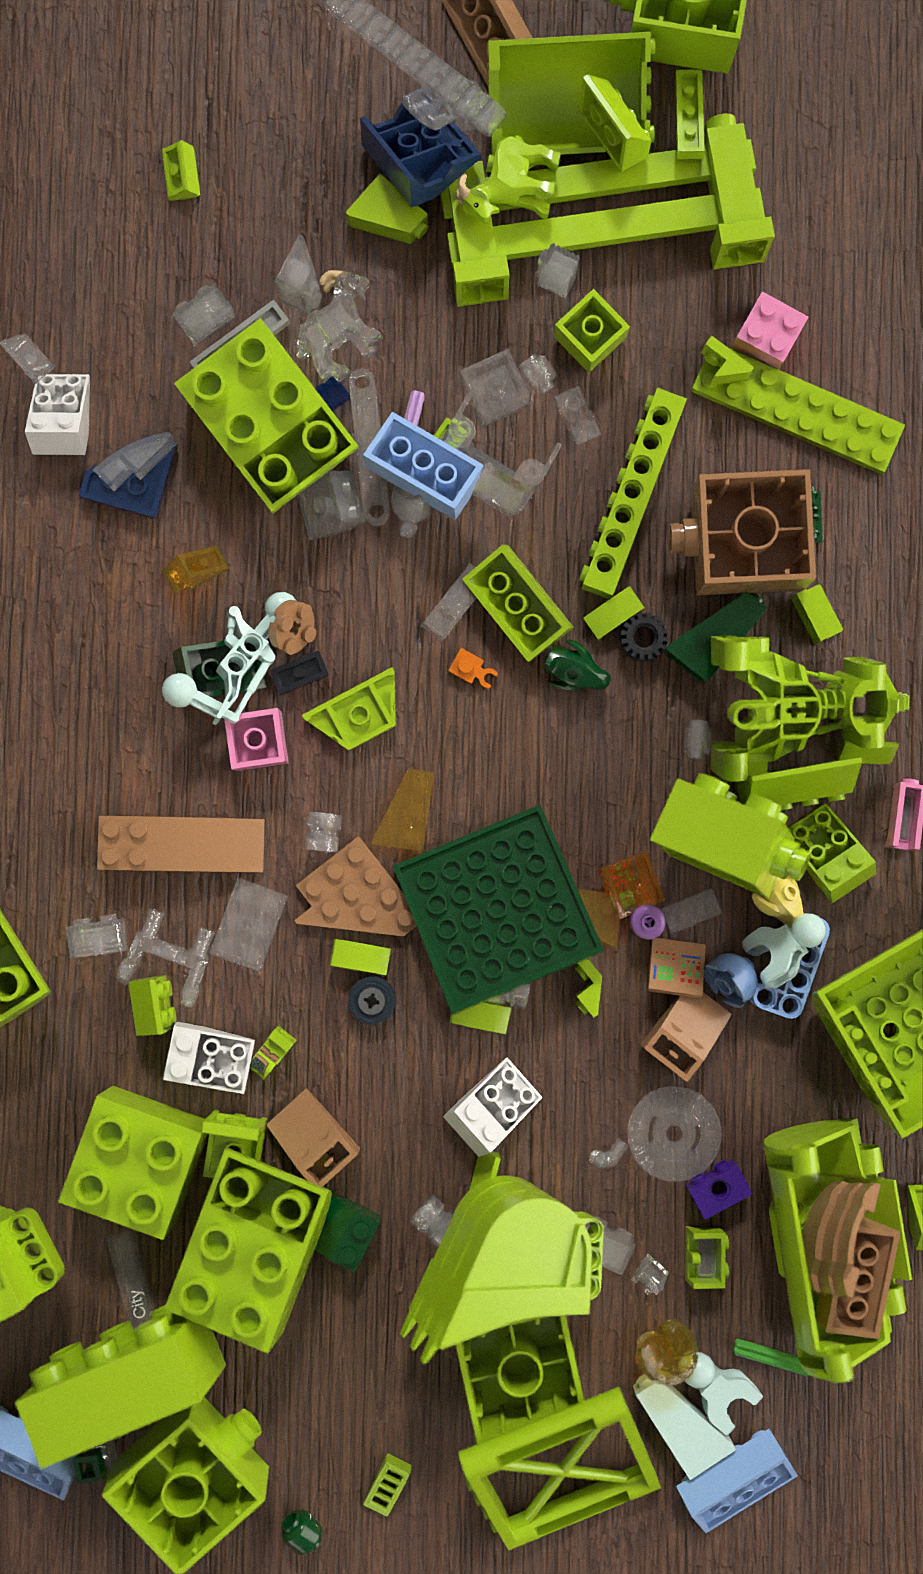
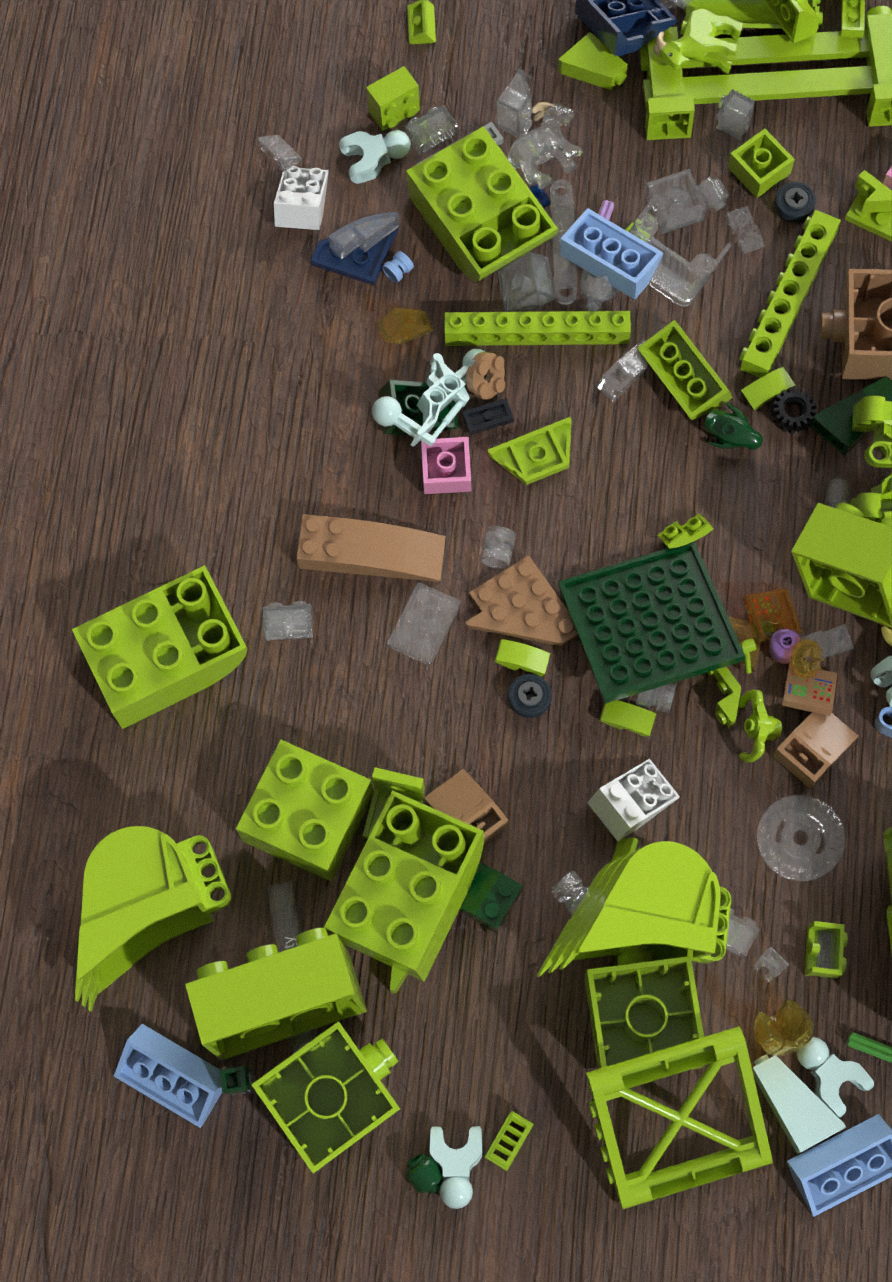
camera: 10 degrees right, 15 degrees down
(141, 350) = (374, 152): none -> light aqua piece
(148, 941) = (332, 629): clear connector -> none
(152, 1005) = (331, 687): lime slope -> none
(154, 280) = (393, 98): none -> lime brick
(182, 489) = (397, 267): none -> light blue wheel
(208, 1058) = (378, 731): white slope -> none
(271, 1052) = (435, 733): lime leg -> none
(333, 1519) = (456, 1165): none -> light aqua piece
(345, 560) = (537, 328): none -> lime brick
(407, 814) = (573, 542): clear yellow wing -> none
(468, 667) = (637, 424): orange plate -> none
(525, 799) = (677, 535): none -> lime slope
(606, 926) = (747, 647): none -> lime hand
(608, 1158) = (737, 854): clear arm -> none
(623, 1018) = (758, 725): none -> lime piece
(626, 382) = (788, 207): none -> black wheel
(666, 933) = (802, 650): none -> clear yellow gear
(732, 977) = (859, 700): medium blue cylinder -> none
(733, 1191) = (829, 899): dark purple brick -> none

